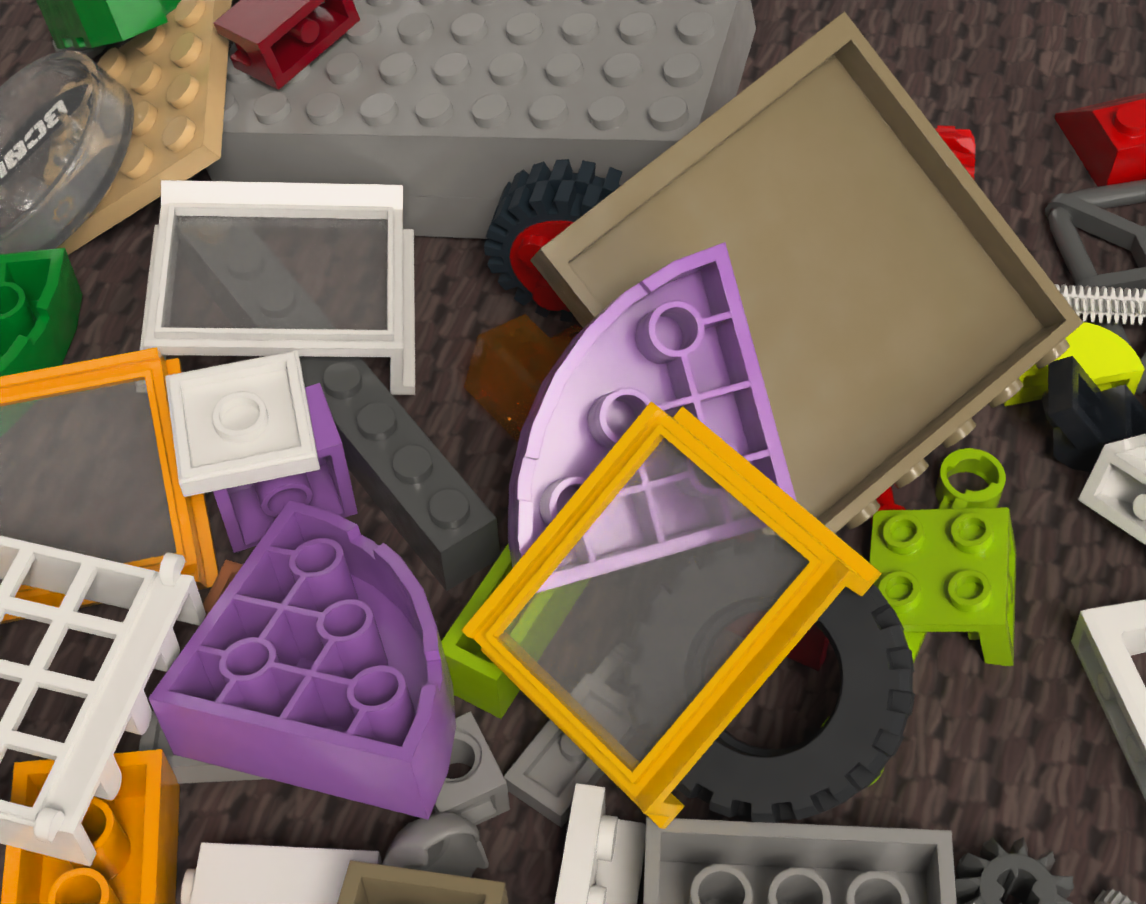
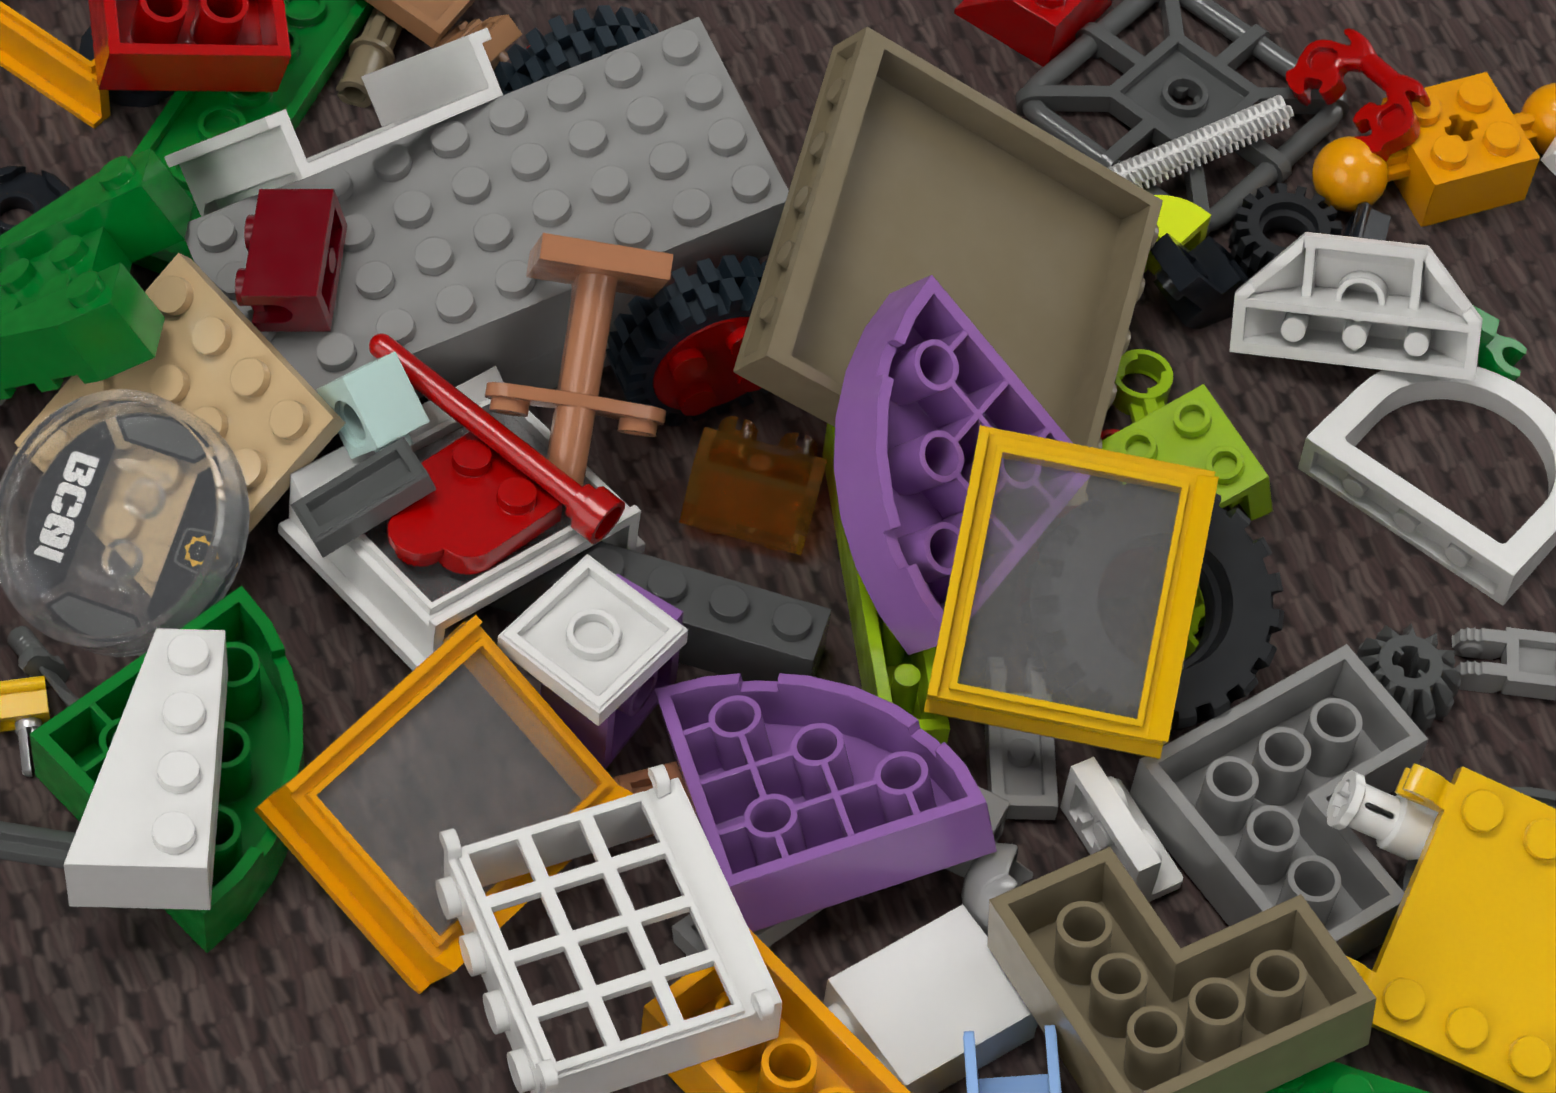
camera: 45 degrees left, 0 degrees up
(181, 218) = (363, 497): none -> dark grey tile
(251, 157) = (375, 405): none -> light aqua brick
(255, 271) = (475, 514): none -> red plate
(341, 319) = (591, 509): none -> red piece
(456, 139) = (595, 274): none -> nougat piece

